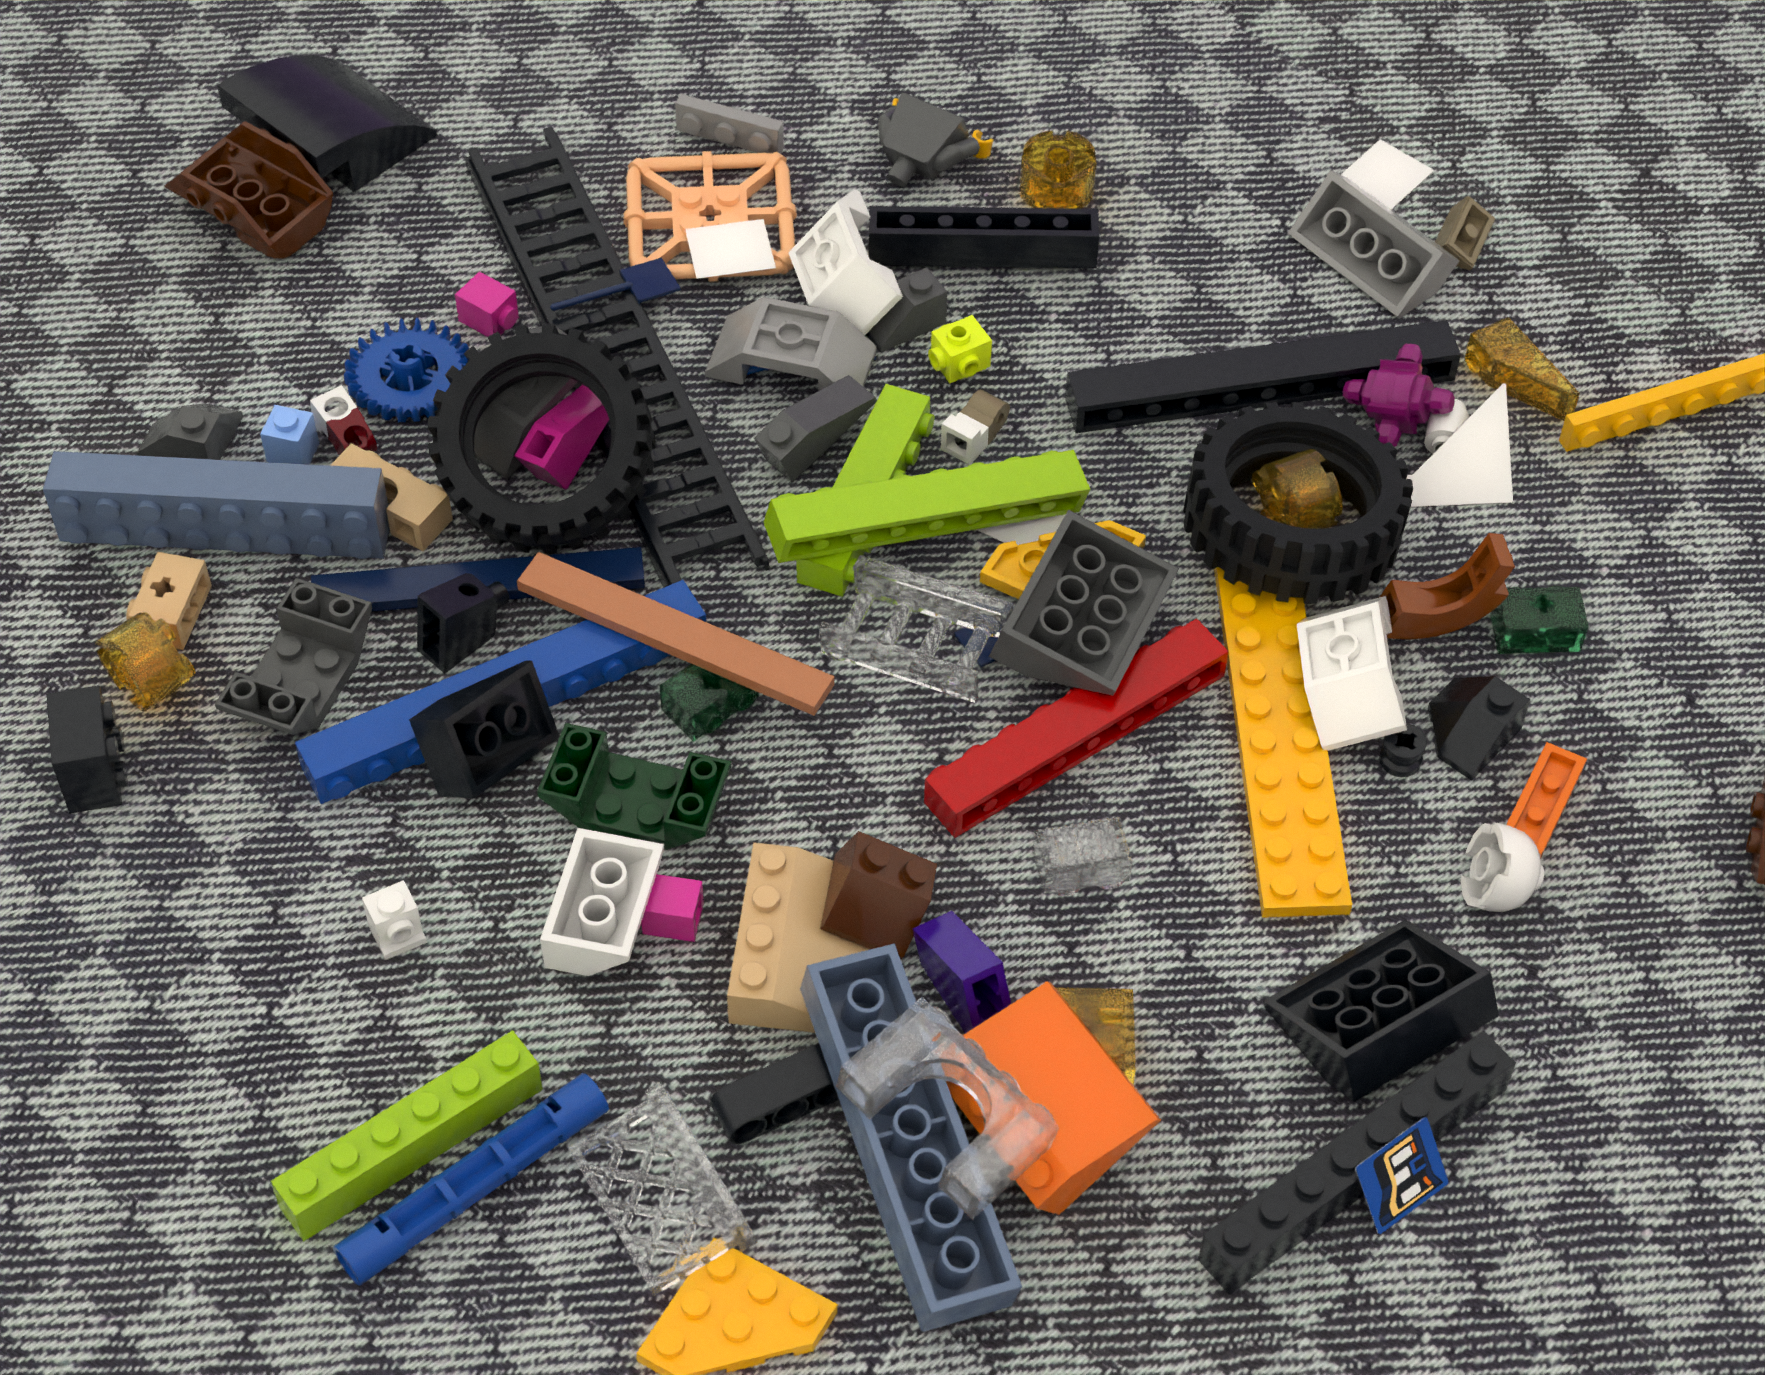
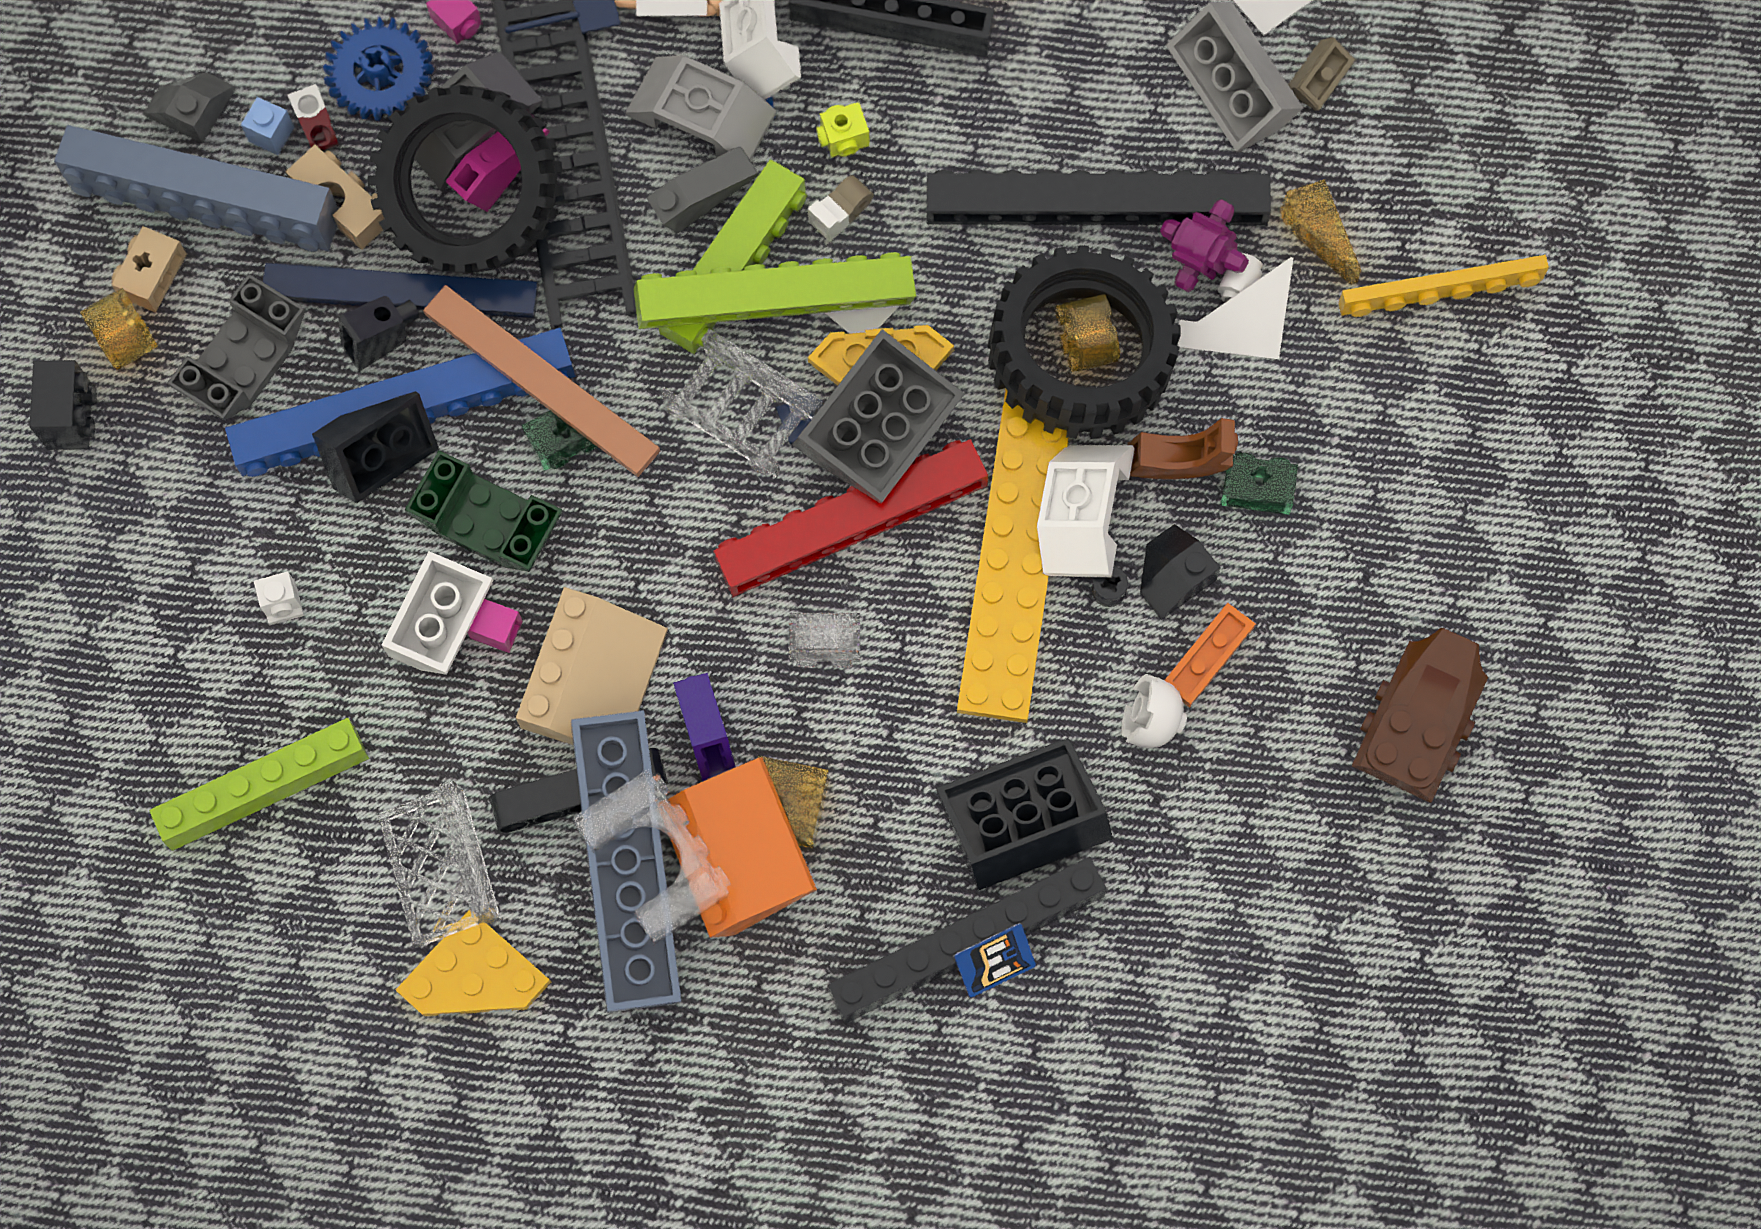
camera: 15 degrees right, 20 degrees up
(470, 1179) = (233, 862): blue piece -> none
(877, 893) = (652, 648): reddish brown slope -> none
(916, 313) = (819, 79): dark grey slope -> none

